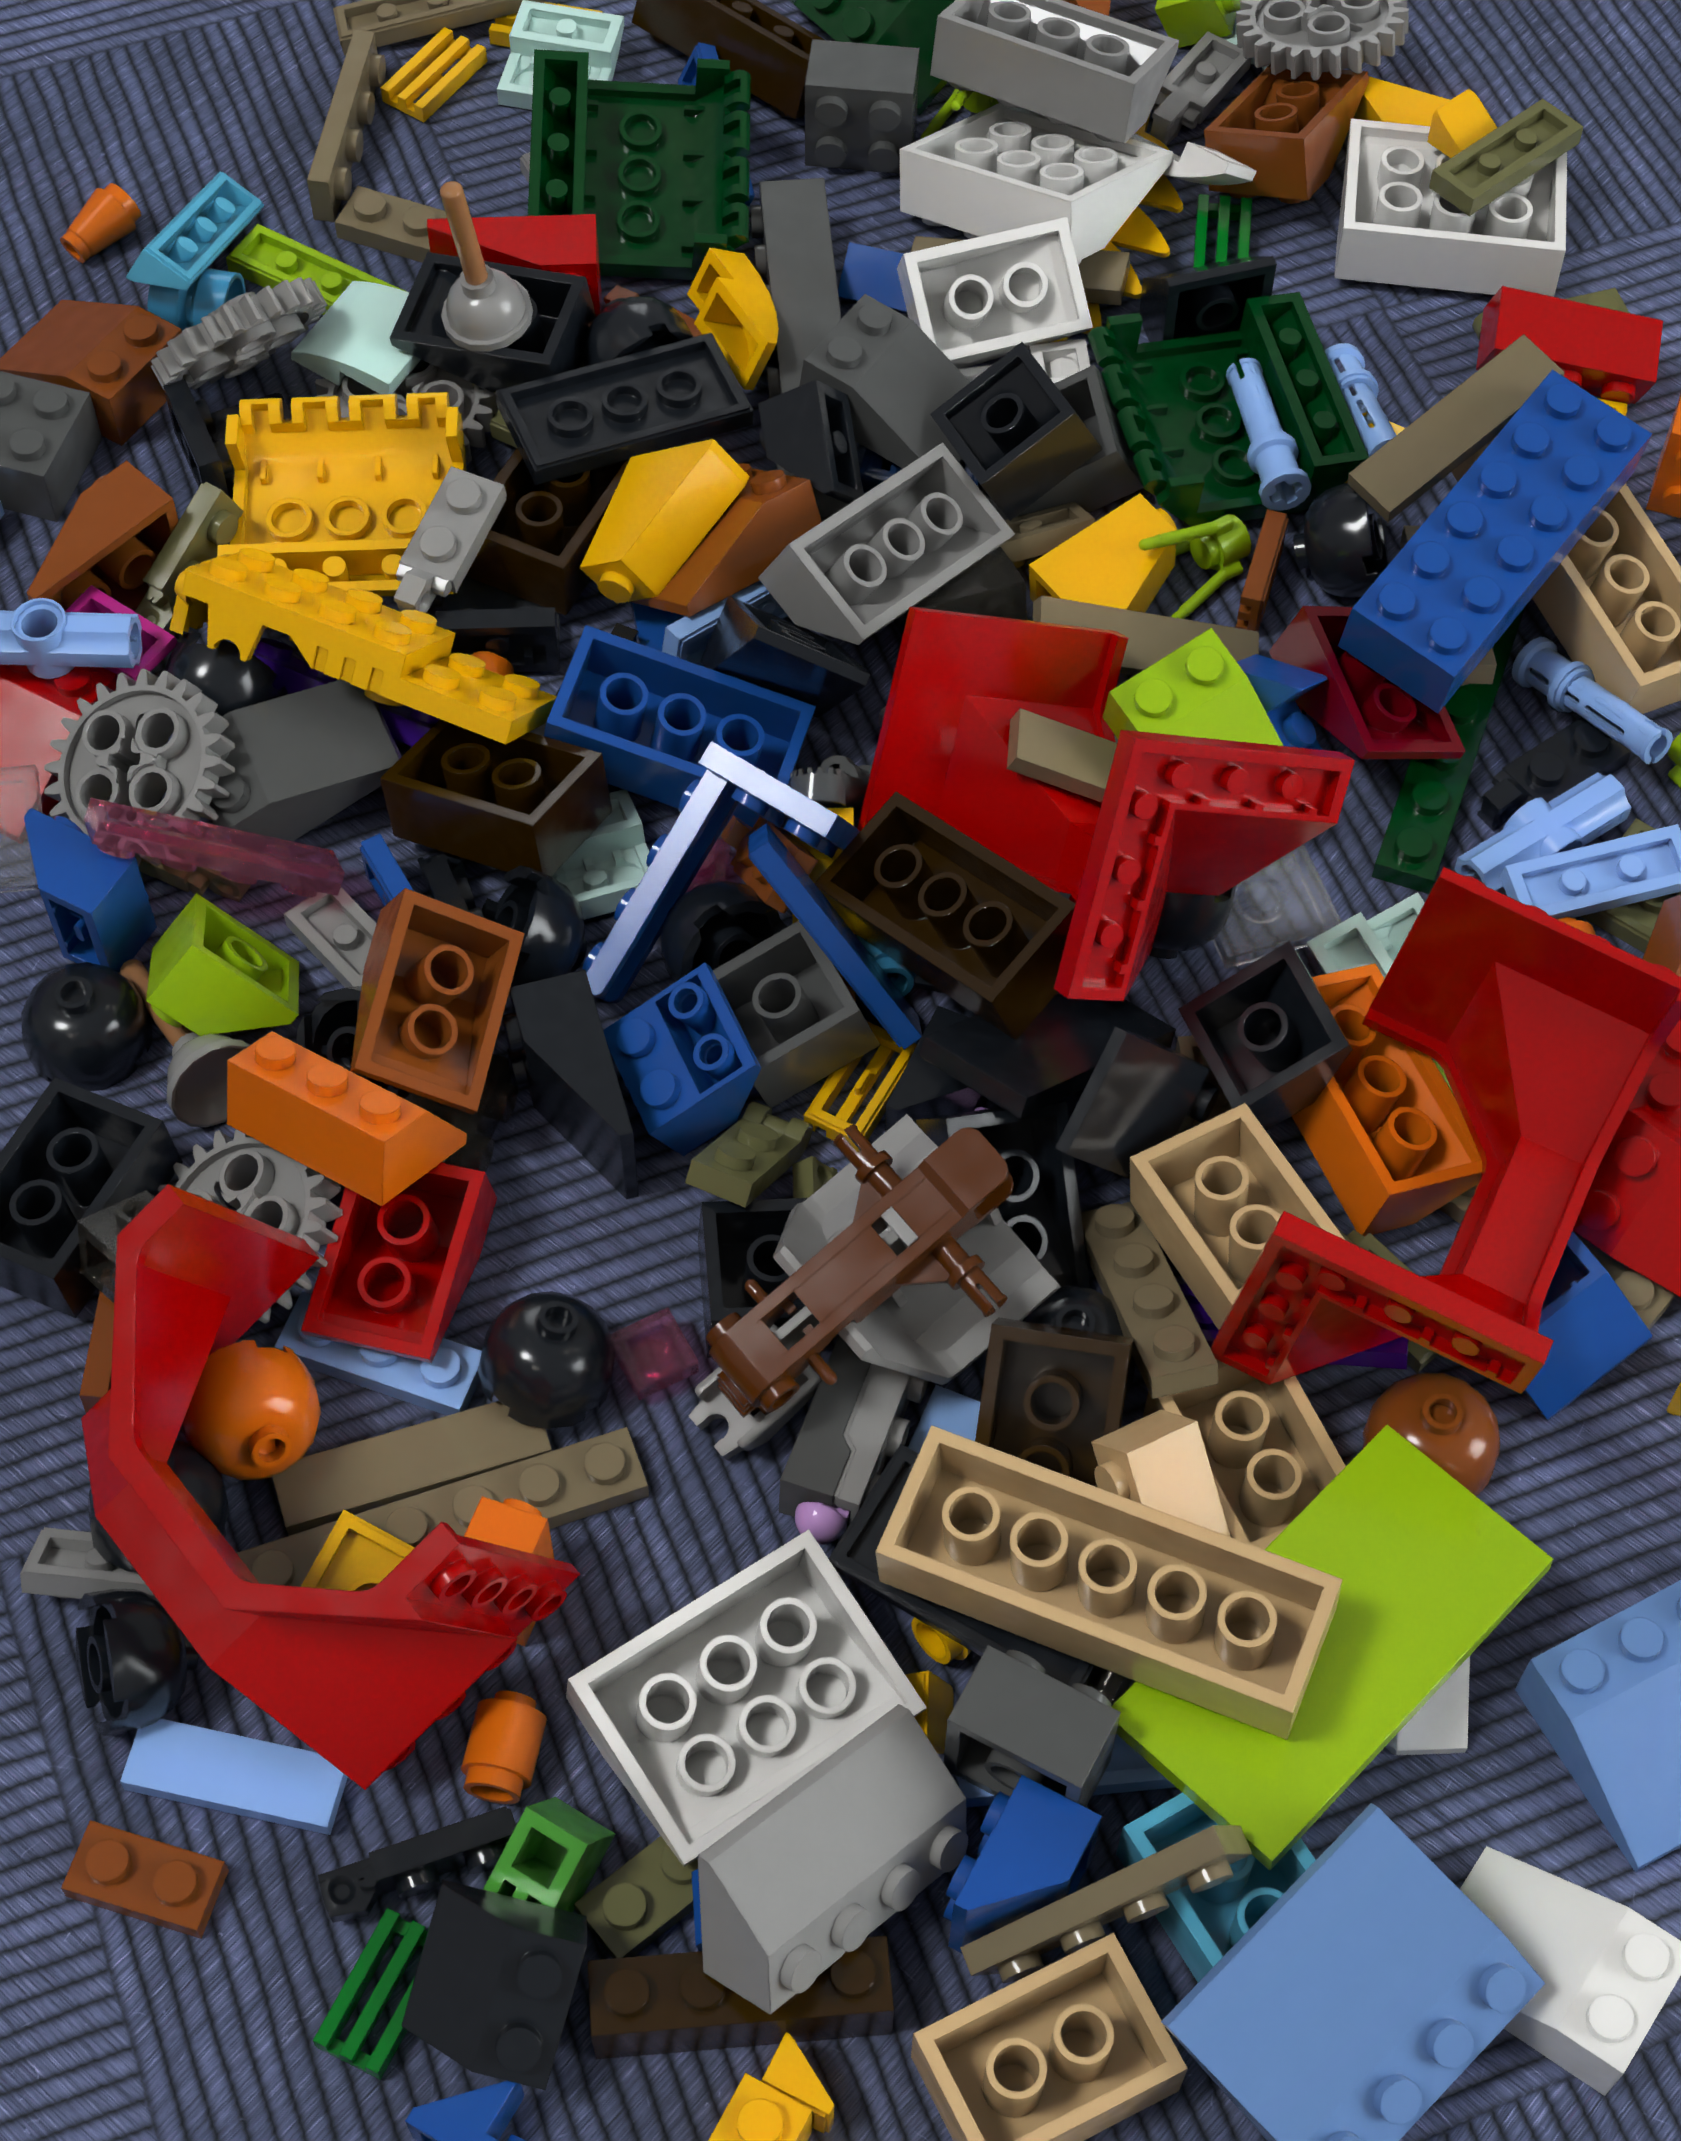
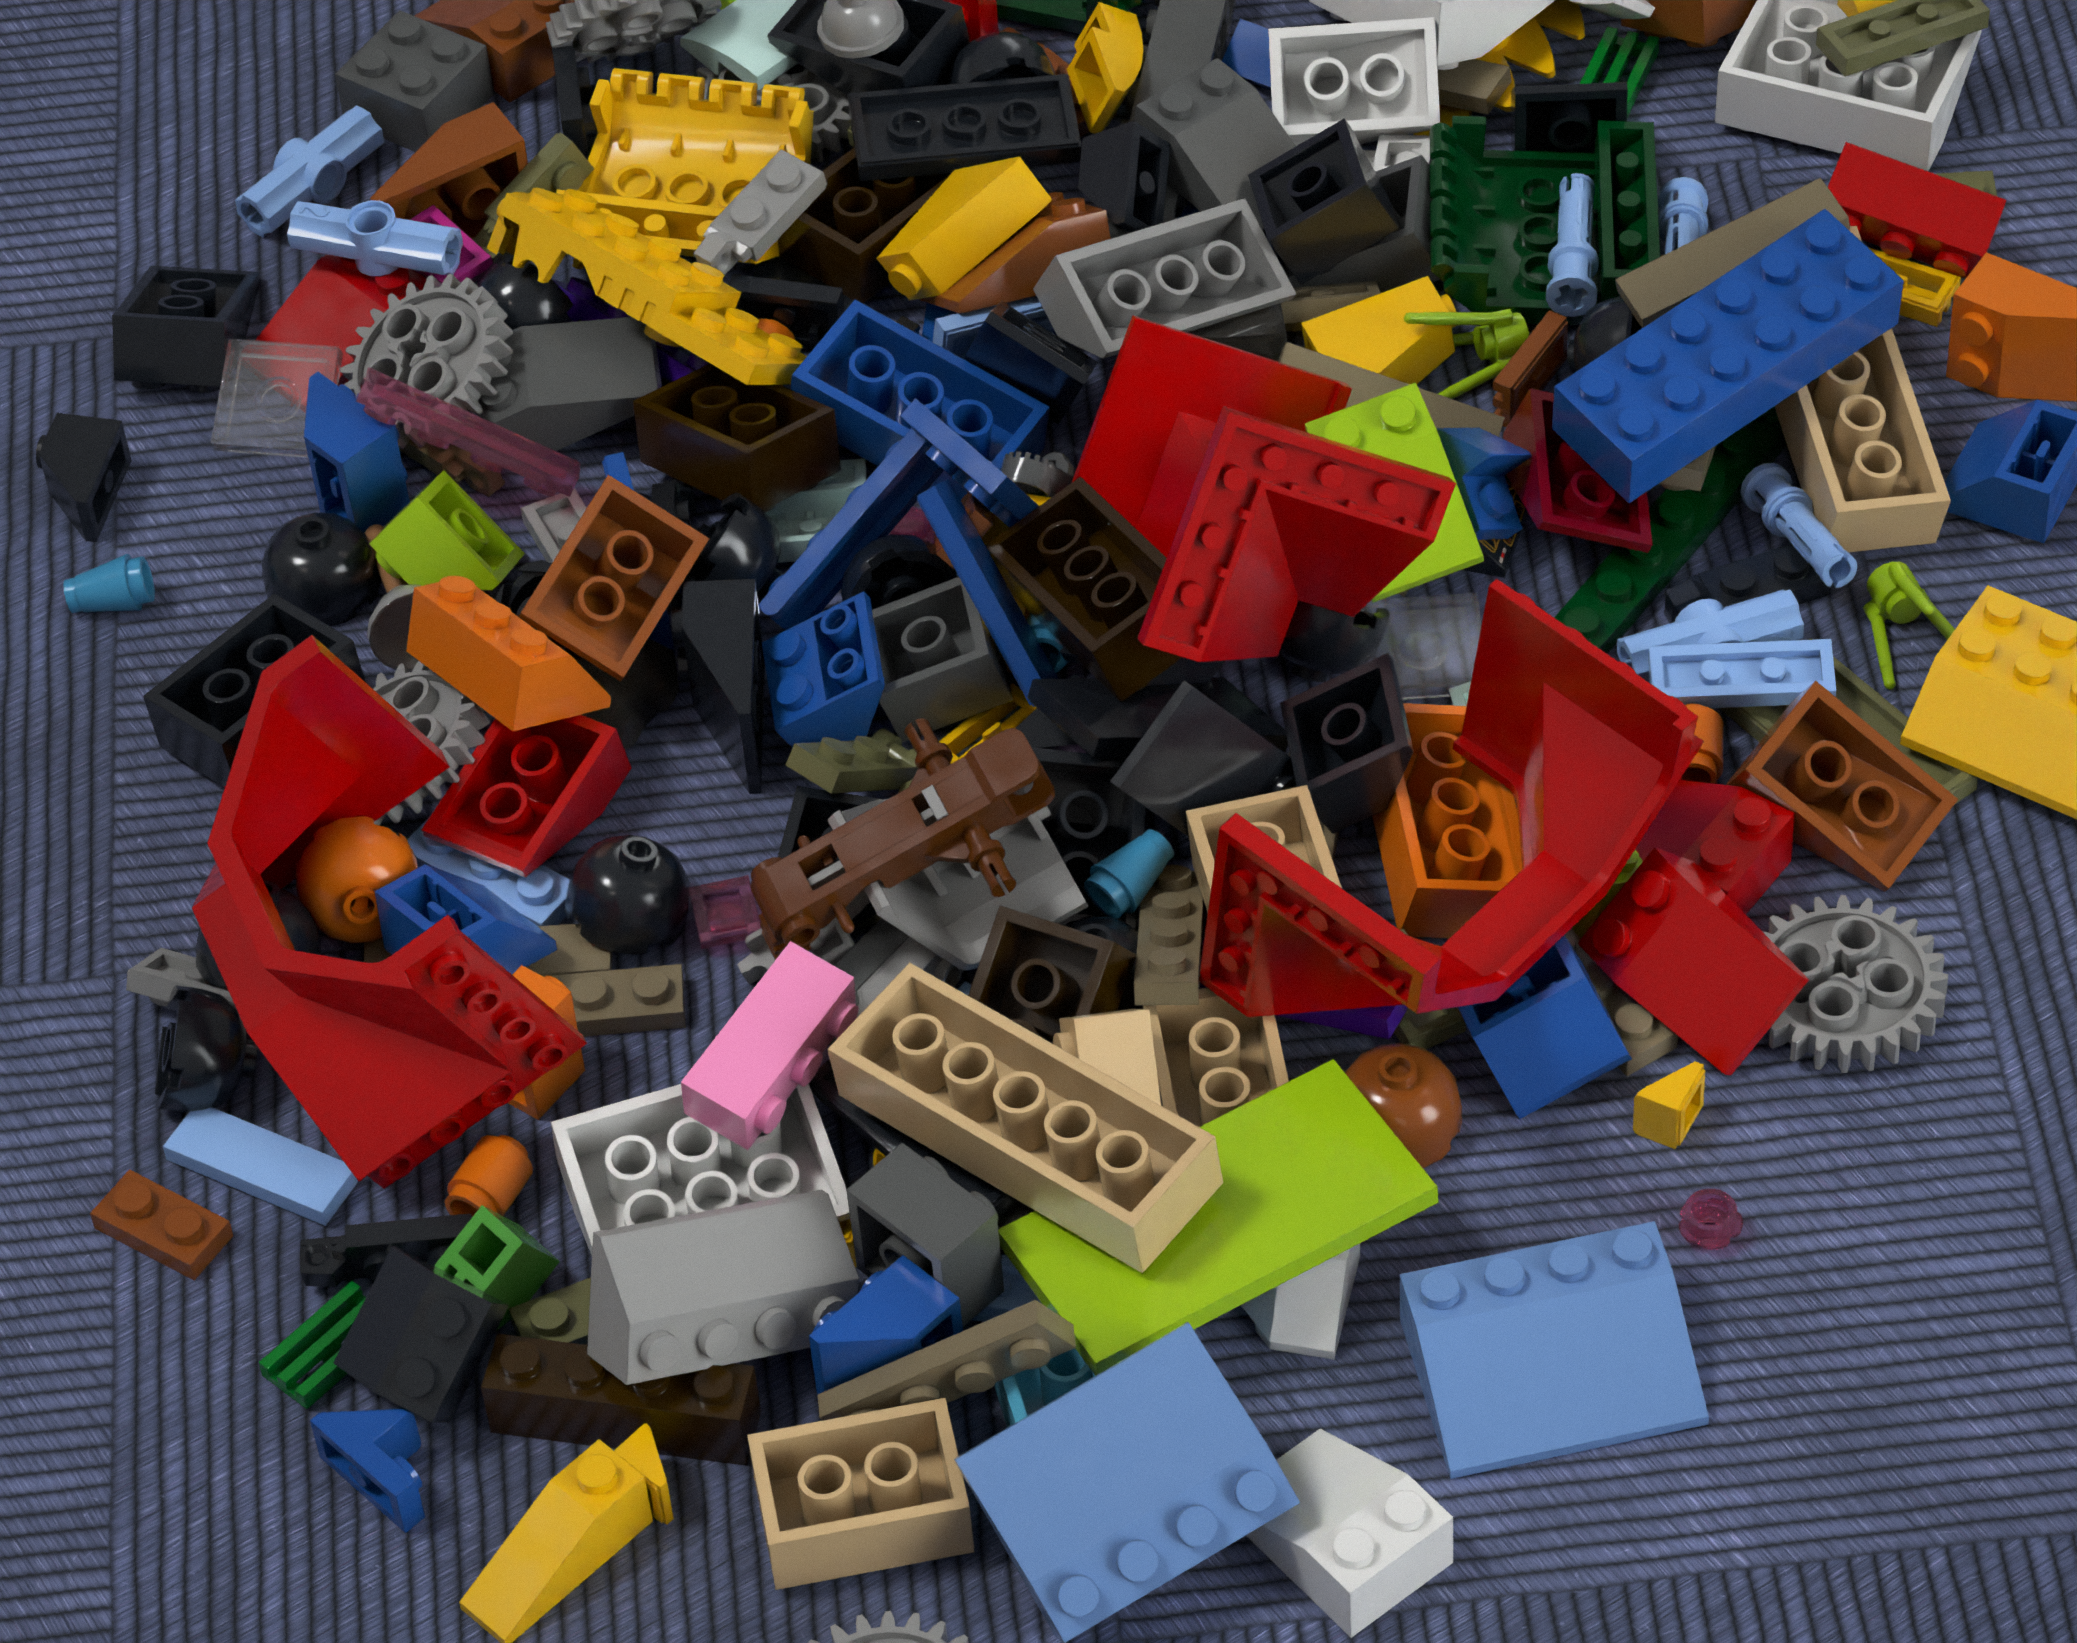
camera: 20 degrees right, 10 degrees down
(383, 1452) = (429, 894): none -> blue slope
(791, 1541) = (770, 1046): none -> bright pink brick
(1078, 1232) = (1127, 875): none -> dark azure cone

